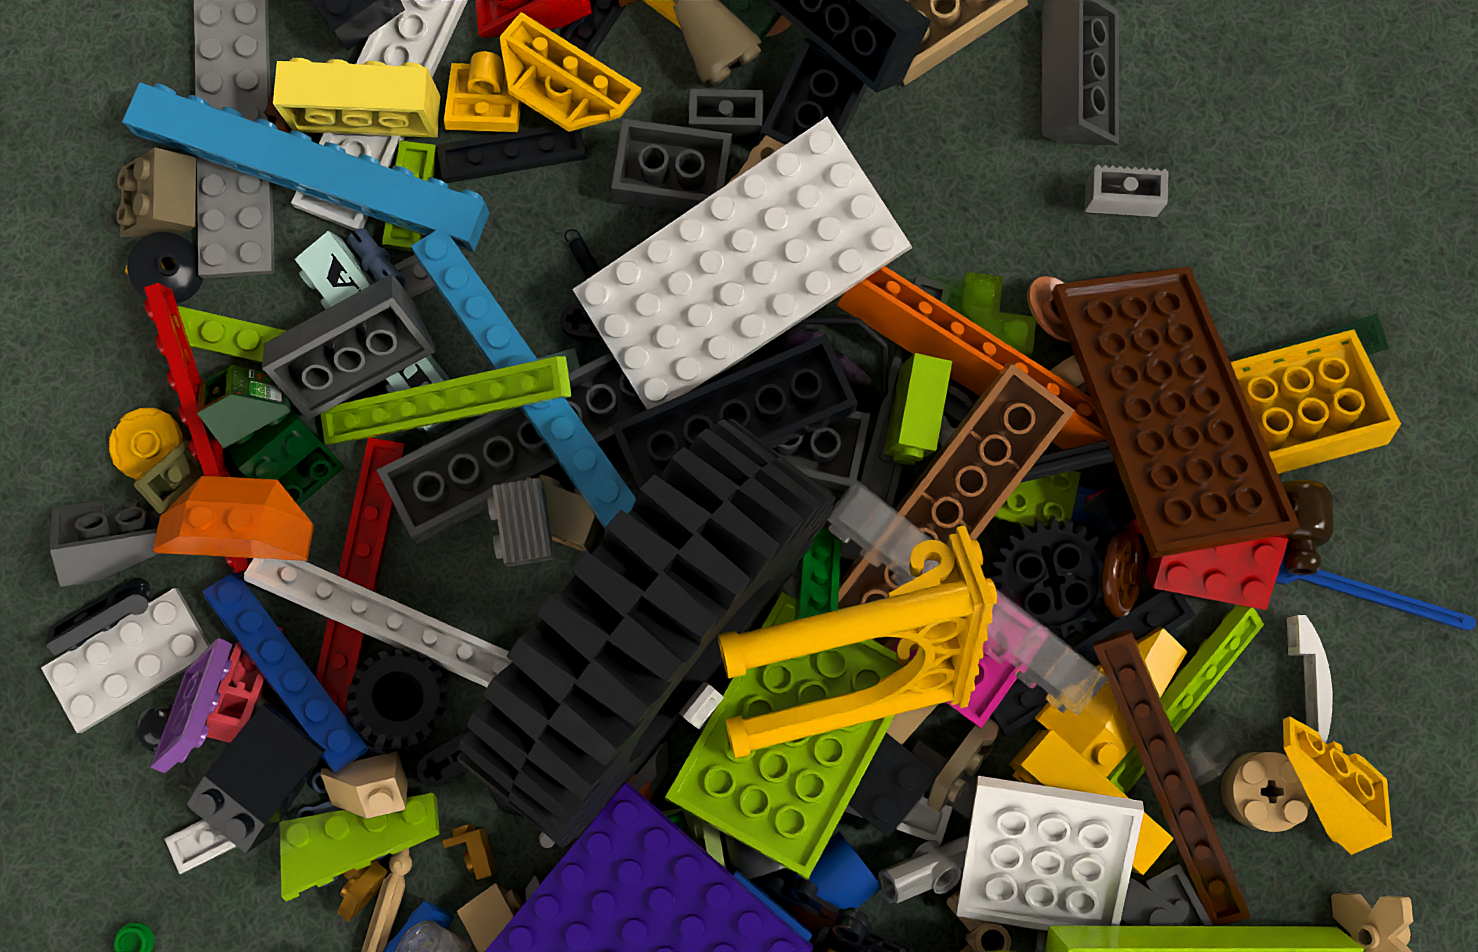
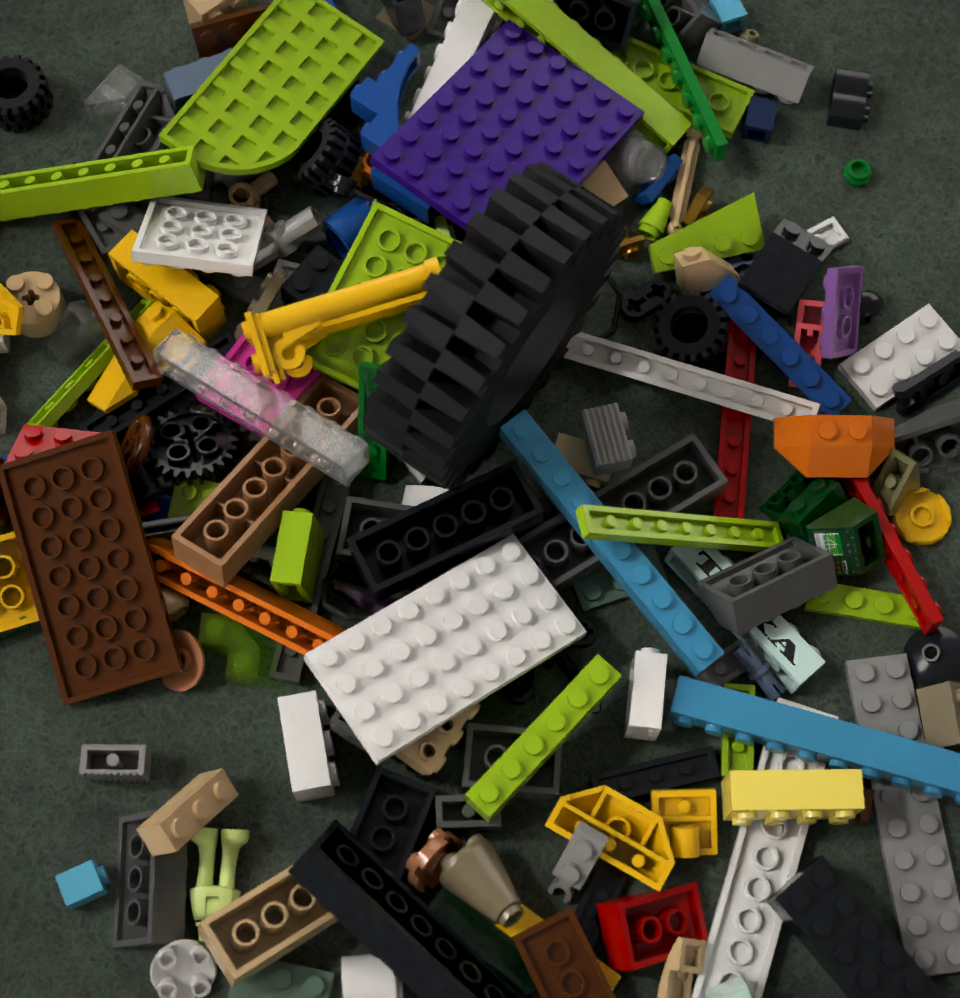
camera: 175 degrees right, 10 degrees down
(423, 877) = (655, 220): none -> lime cone
(511, 230) = (645, 694): none -> white window
(606, 52) = (577, 860): none -> light grey plate
(634, 169) = (542, 738): none -> lime brick
(775, 56) = (425, 865): none -> nougat plate
(908, 186) = (308, 746): none -> white brick
(1010, 47) = (210, 898): none -> yellowish green piece
(1042, 120) = (187, 812): none -> tan brick
(1155, 68) = (83, 884): none -> medium azure brick

